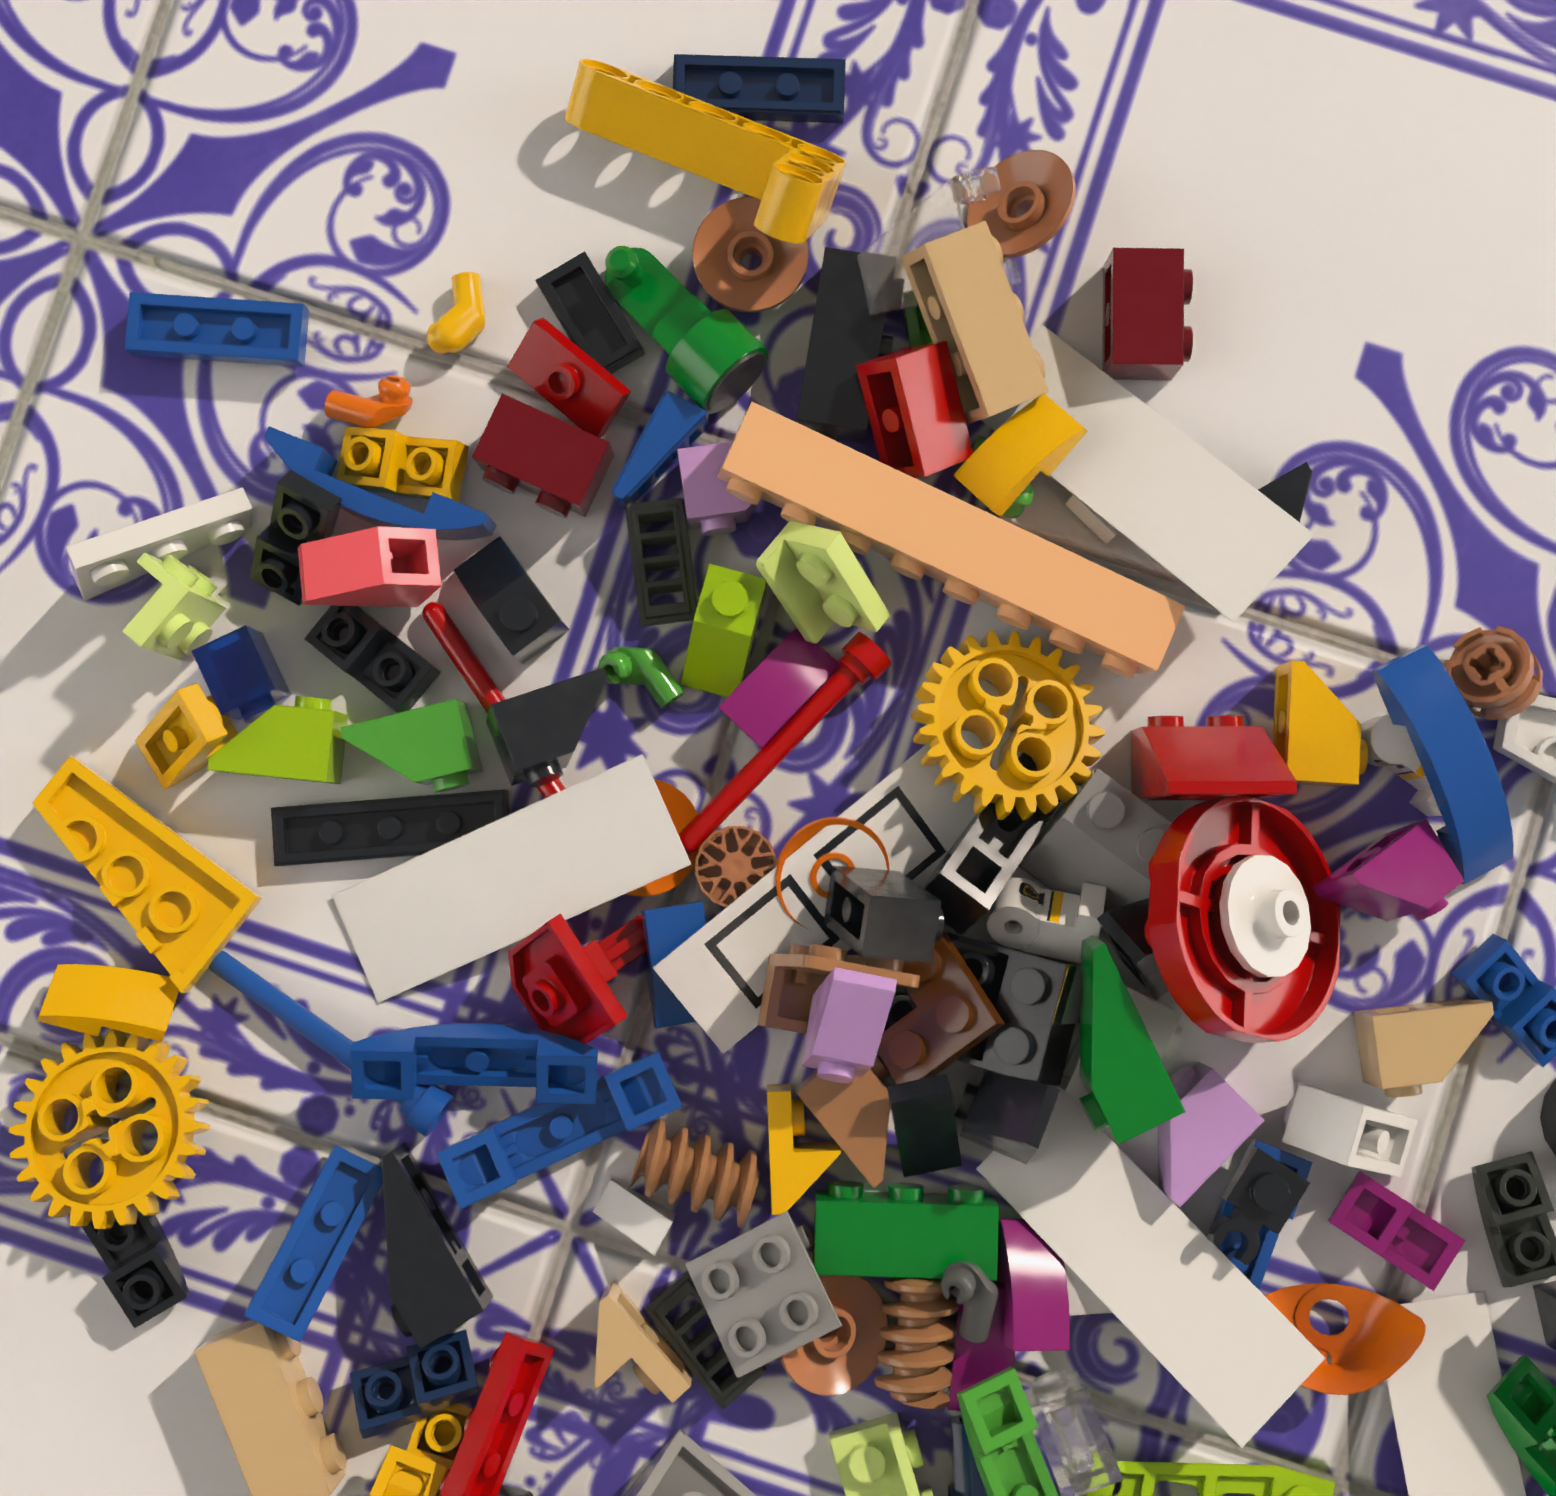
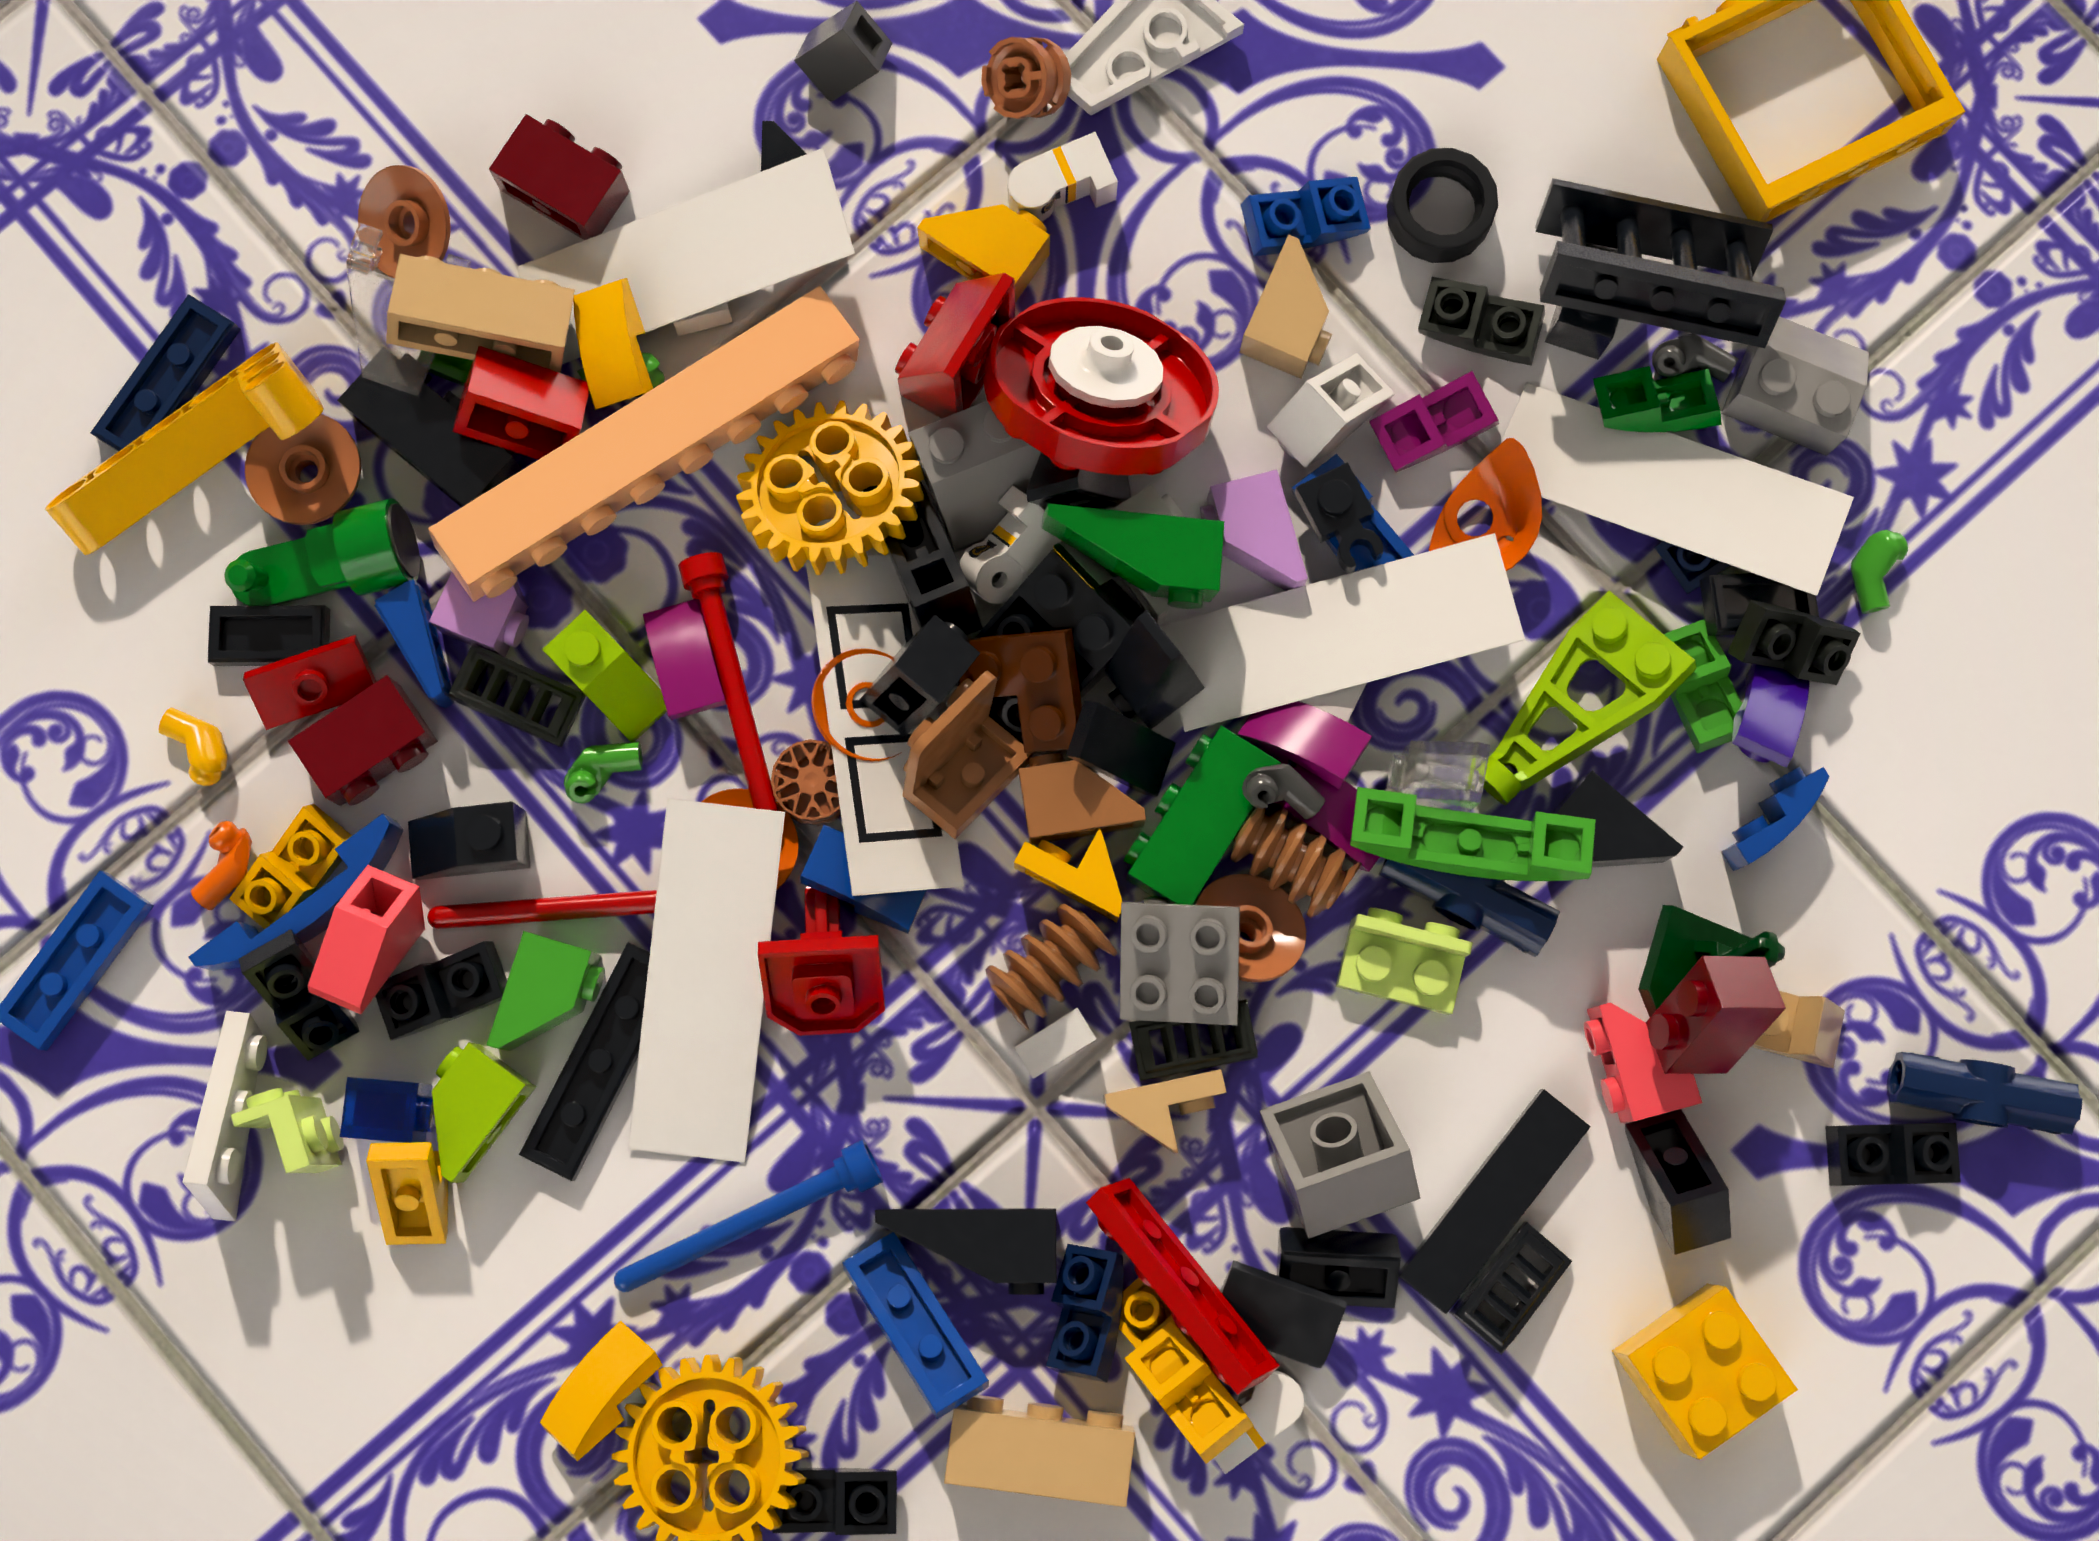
camera: 65 degrees left, 5 degrees down
(158, 880) = (518, 1291): yellow wing -> none
(474, 1055) = (840, 1093): blue slope -> none
(542, 727) = (593, 872): black slope -> none
(555, 1131) = (943, 1059): blue slope -> none
(820, 581) = (615, 566): yellowish green bracket -> none
(847, 1024) = (990, 752): lavender slope -> none
(1395, 876) = (1144, 251): magenta slope -> none
(1415, 492) = (843, 51): none -> dark grey panel
(1453, 758) = (1078, 149): blue slope -> none

